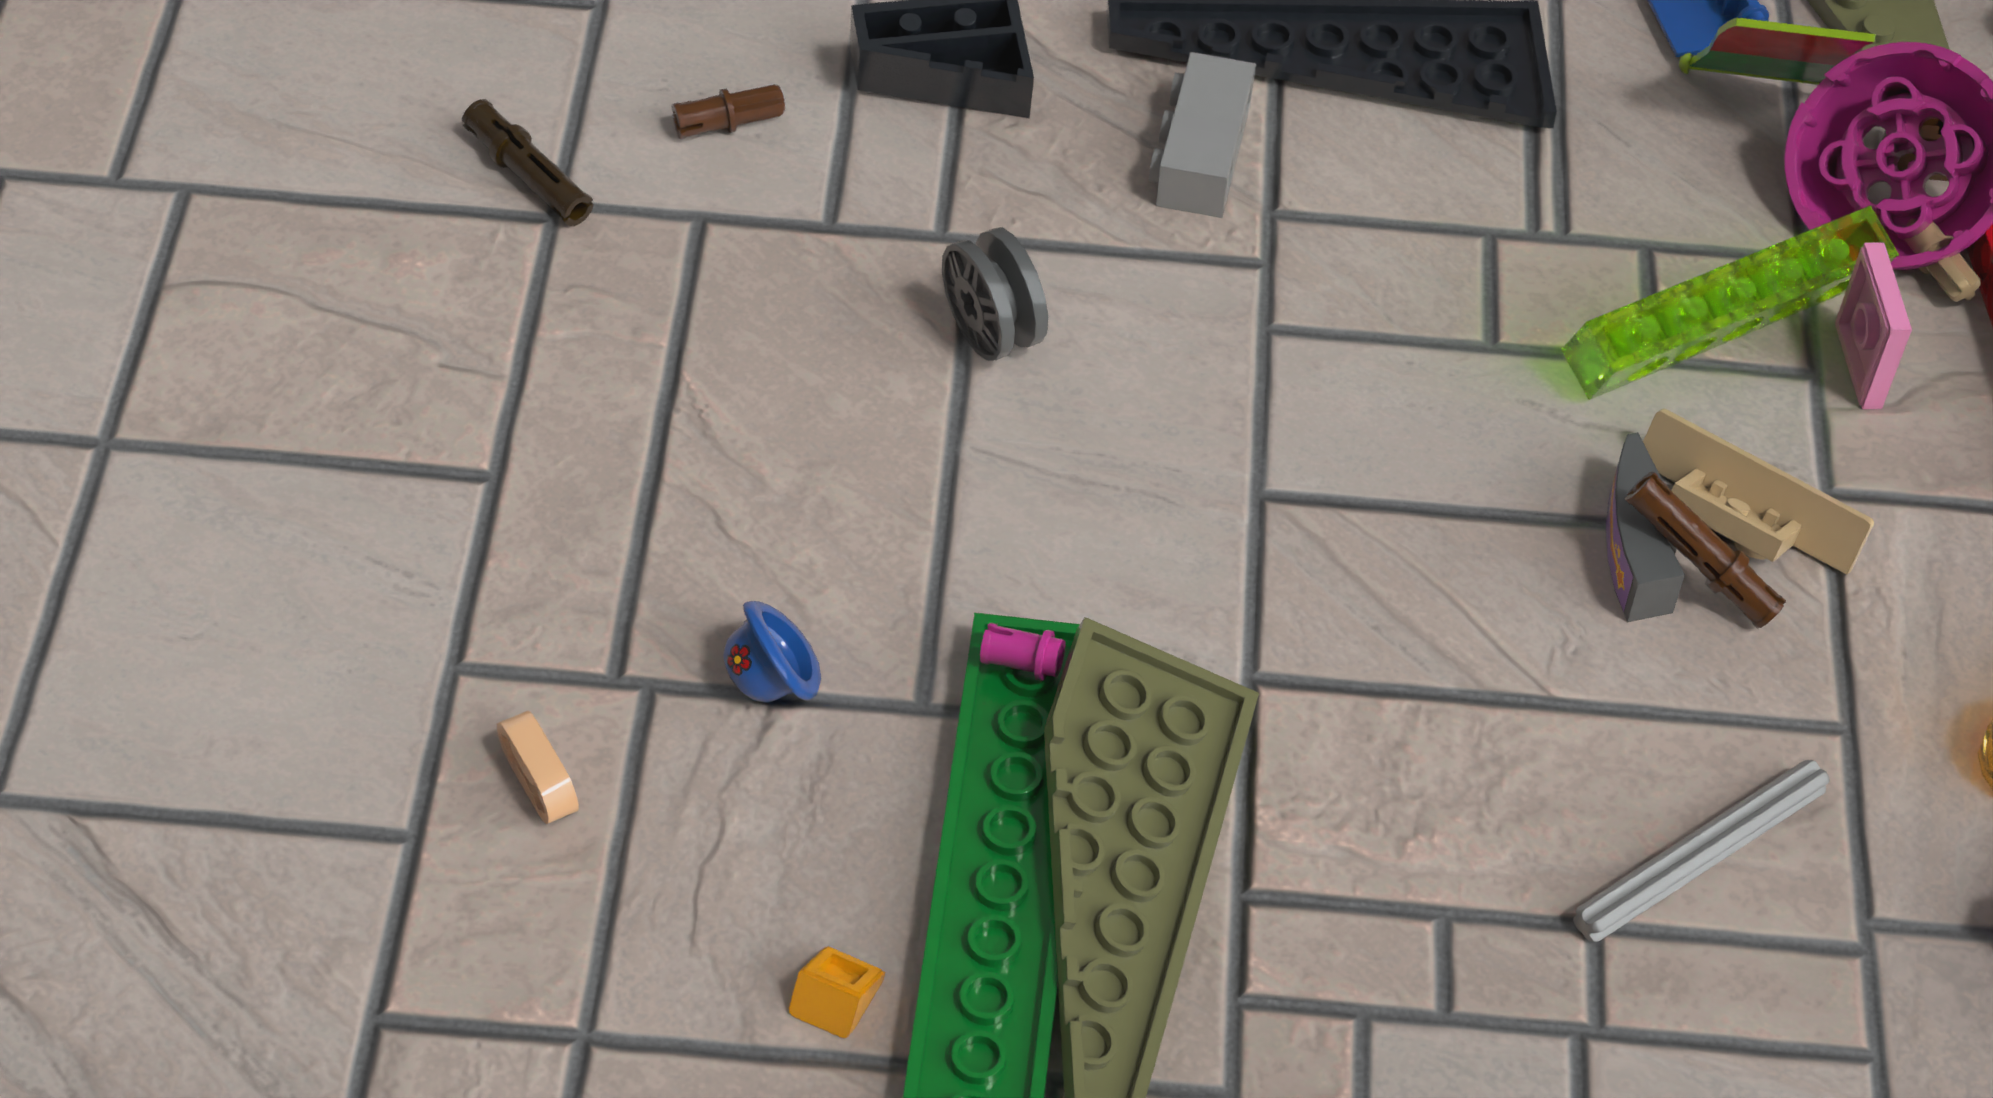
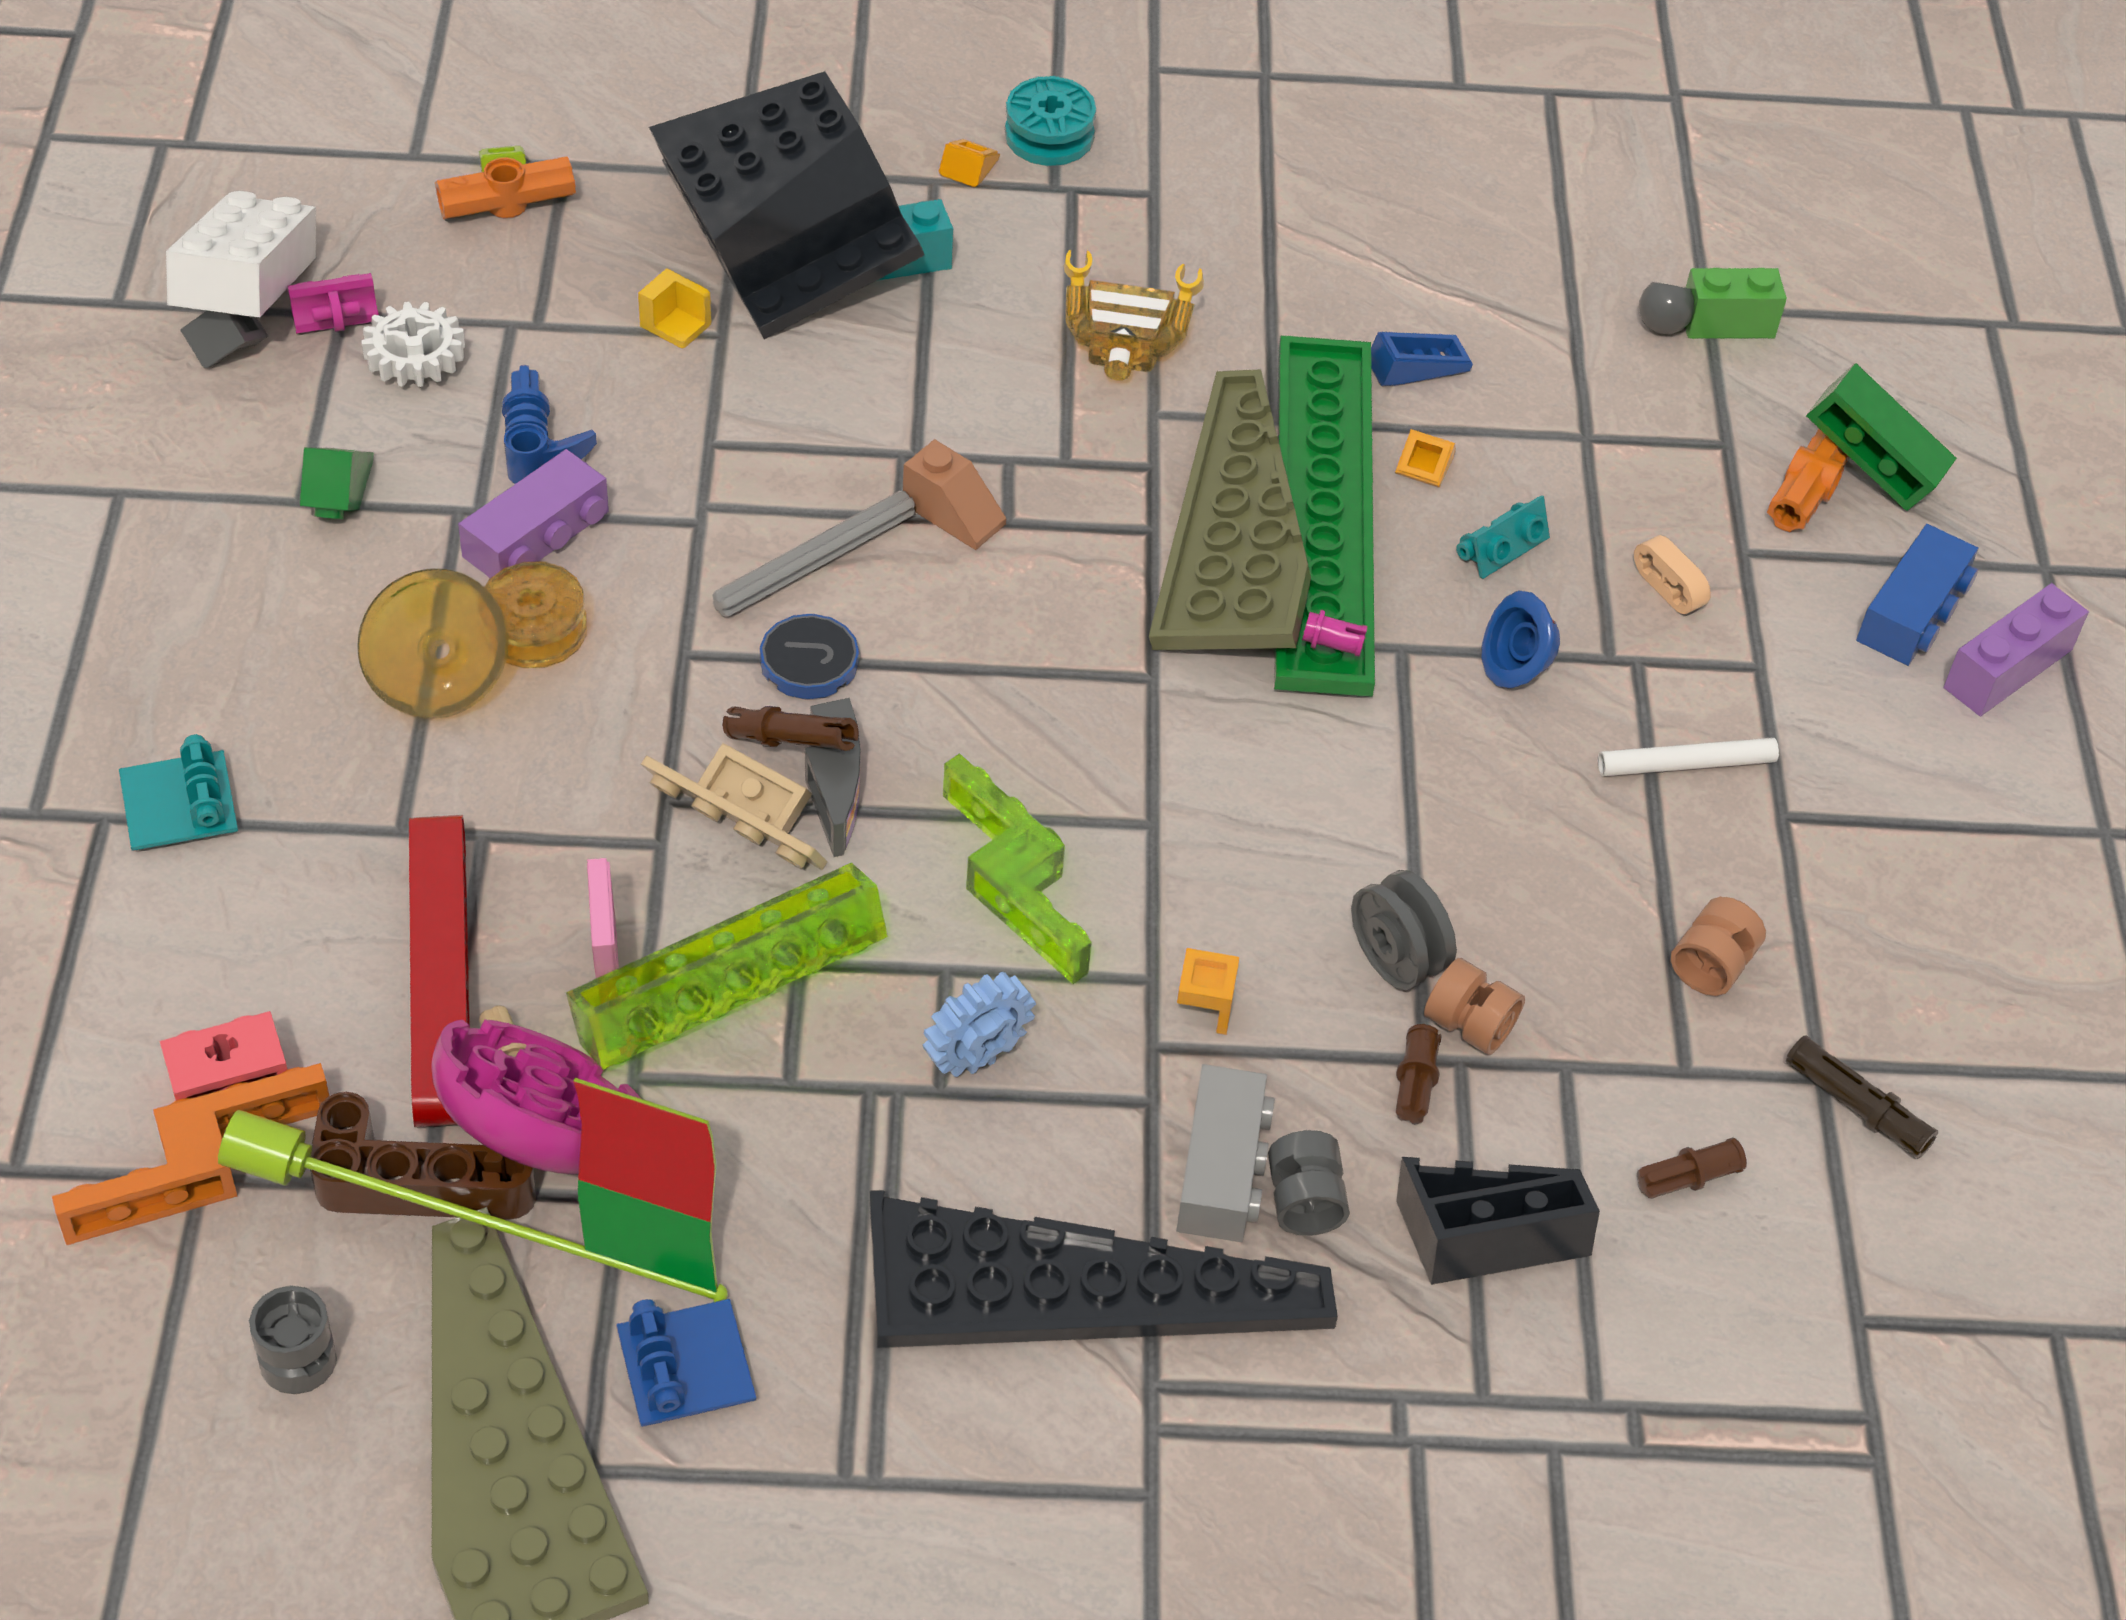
camera: 175 degrees right, 0 degrees up
(112, 631) = (2015, 649): none -> medium lavender brick
(165, 924) = (1881, 437): none -> green brick
(205, 723) = (1919, 595): none -> blue brick
(272, 924) = (1808, 482): none -> orange piece
(591, 533) = (1688, 757): none -> white piece
(637, 290) = (1718, 946): none -> nougat wheel
(730, 852) = (1507, 537): none -> teal hinge
(913, 237) = (1476, 1007): none -> nougat wheel
(994, 197) = (1418, 1073): none -> reddish brown axle
(1123, 95) = (1308, 1183): none -> dark grey wheel
(1212, 271) = (1209, 983): none -> light orange panel
(1423, 417) = (1016, 868): none -> clear neon green bracket
(1460, 218) = (979, 1024): none -> light blue gear
(1529, 915) = (952, 494): none -> nougat slope
(1690, 703) = (809, 656): none -> black tile

